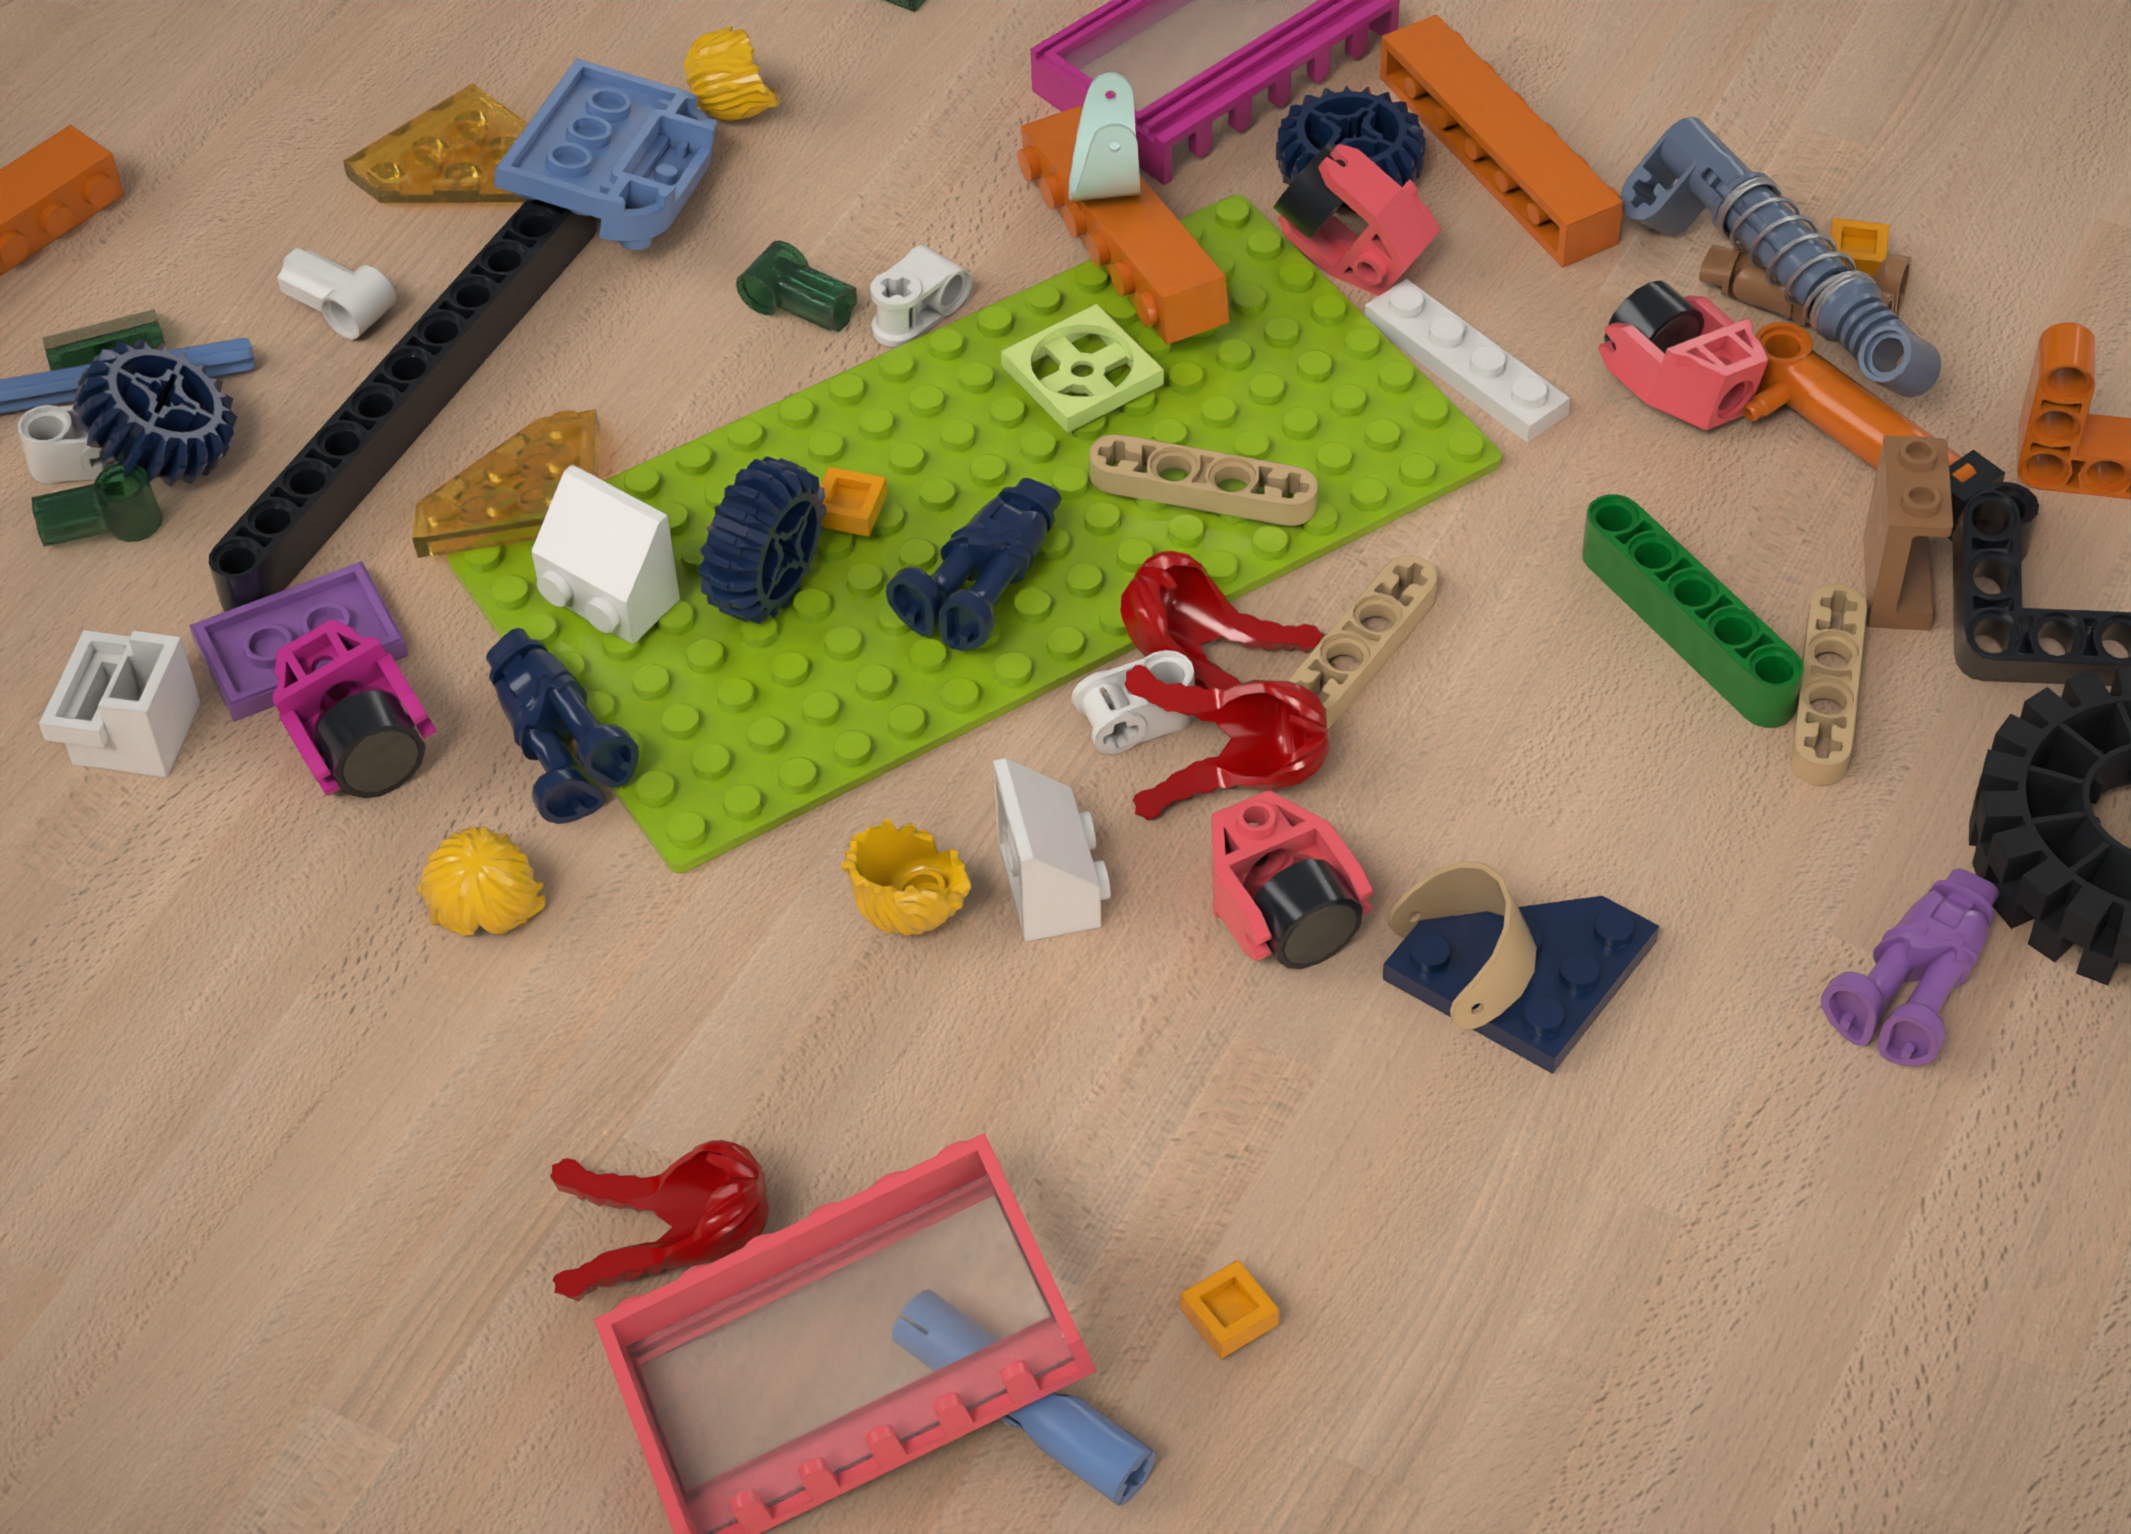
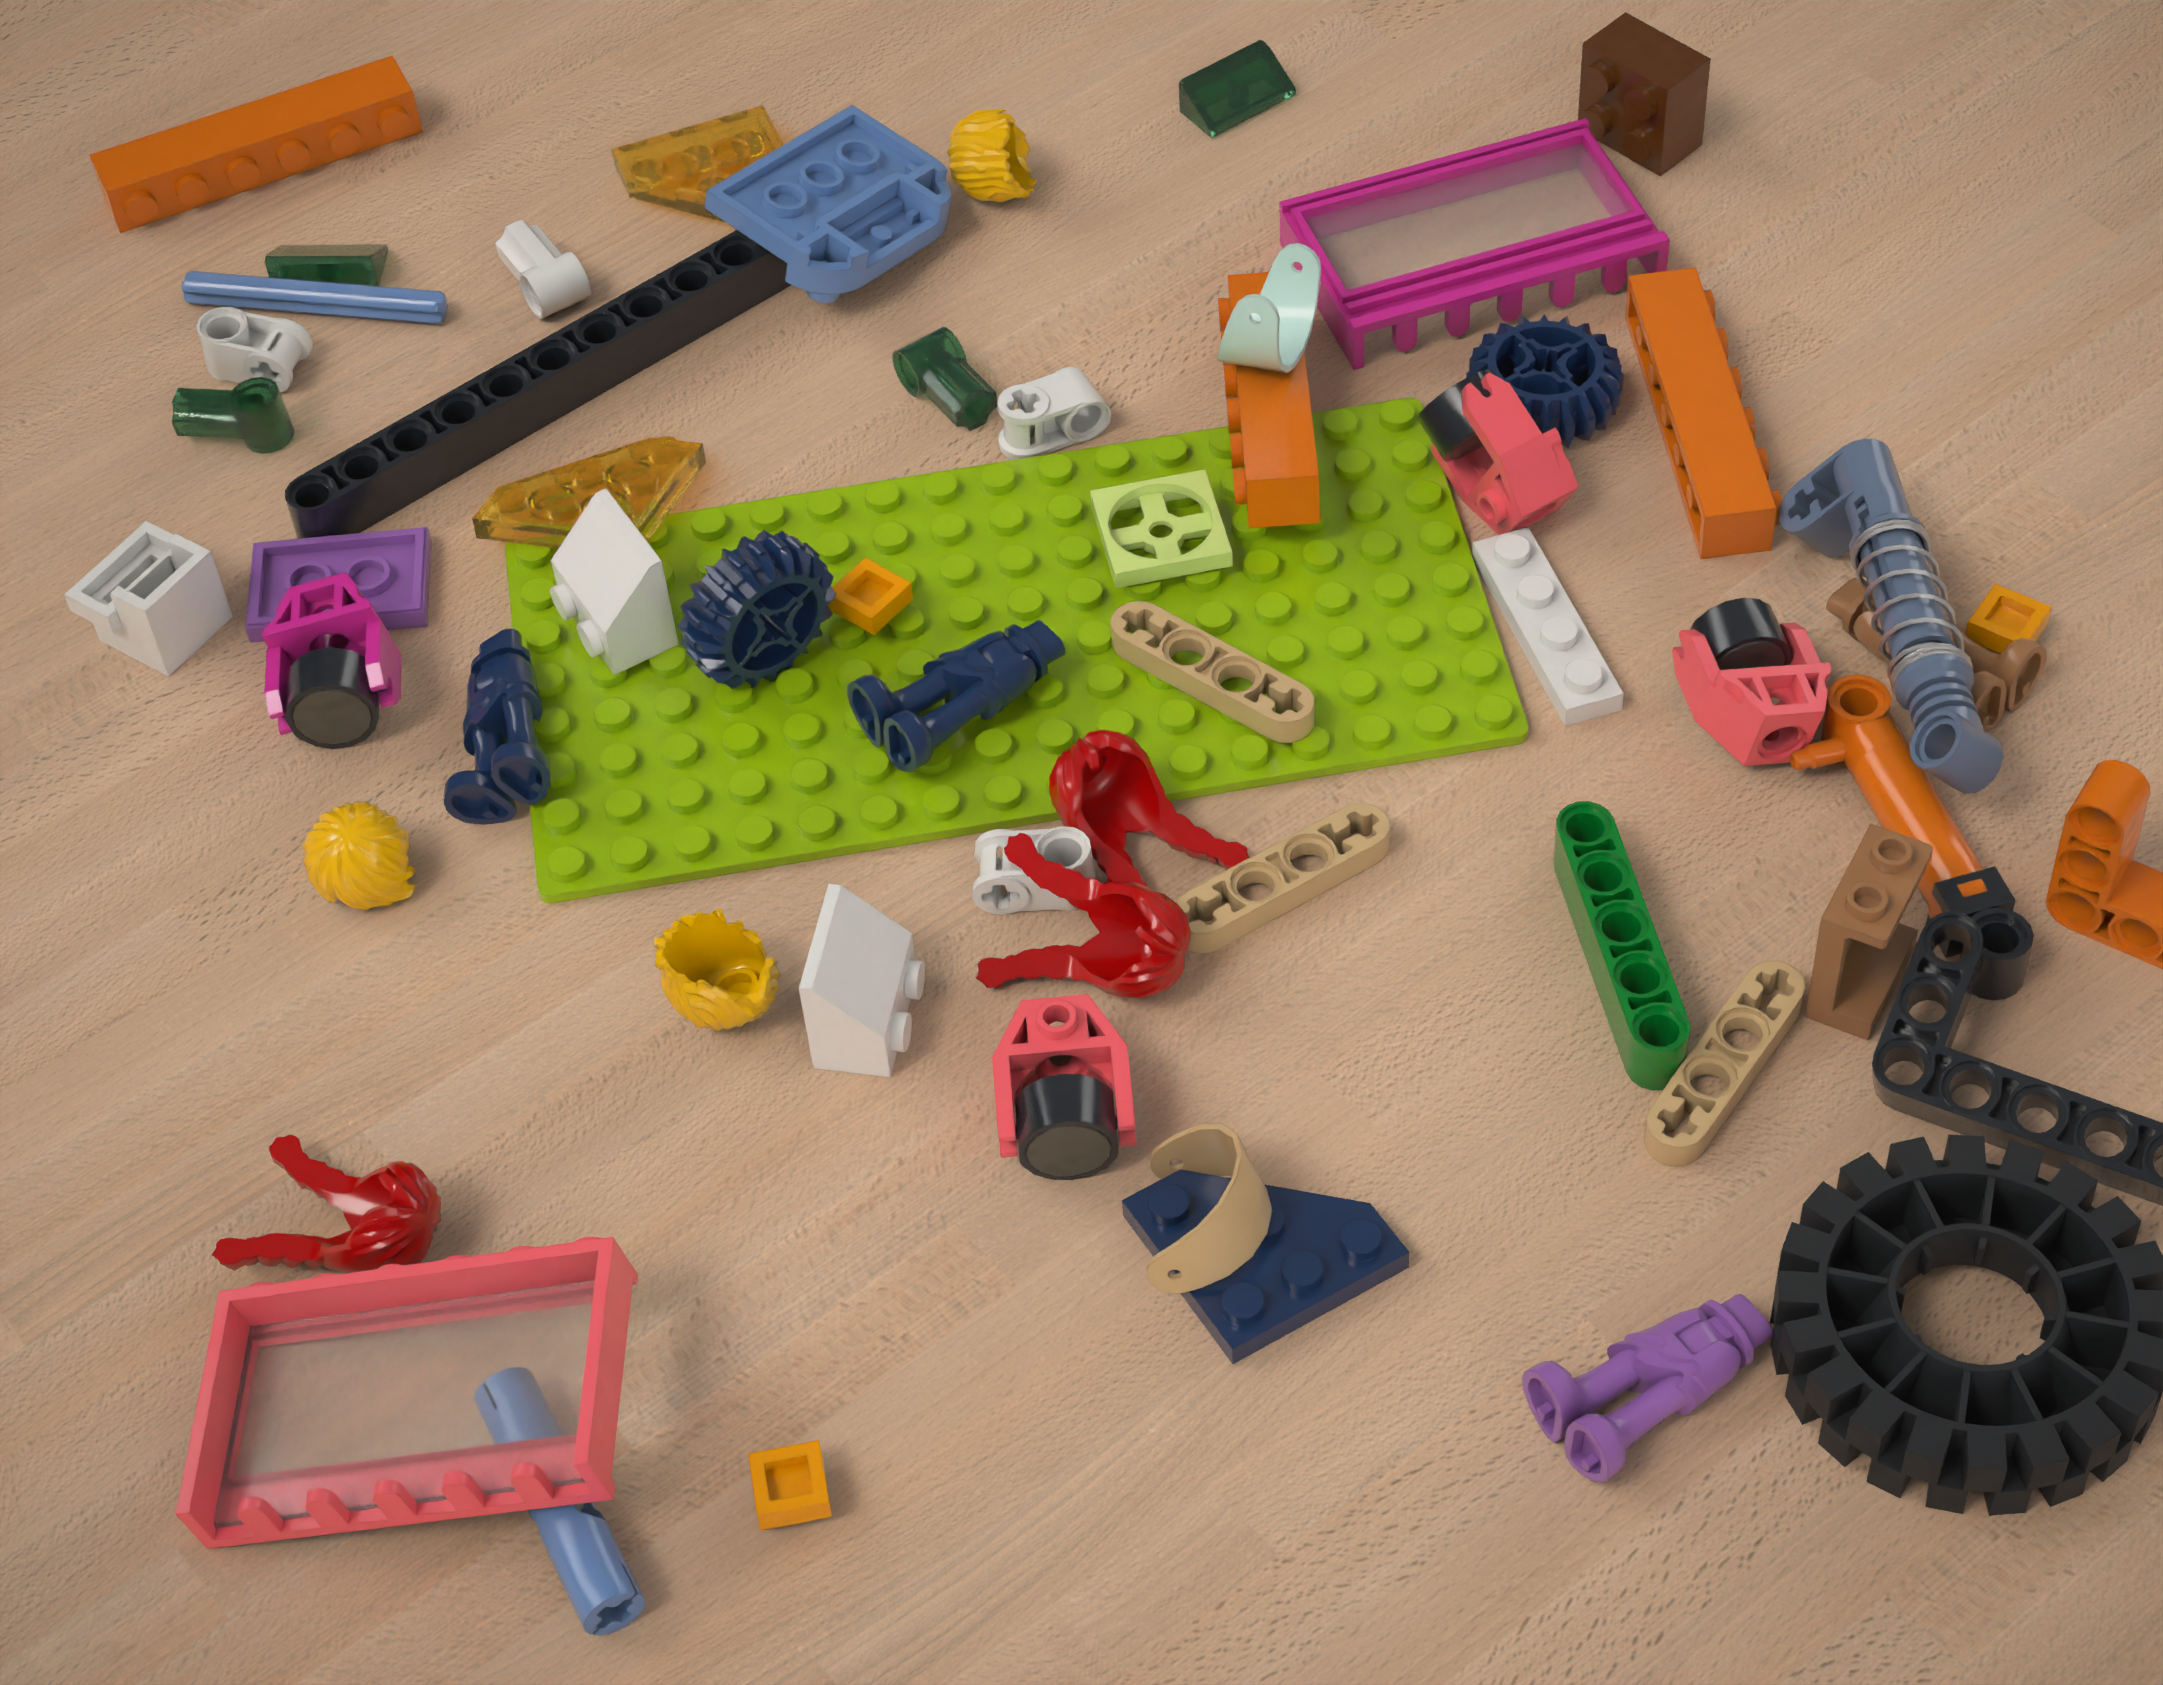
camera: 25 degrees right, 0 degrees up
(154, 412) = (316, 339): dark blue gear -> none

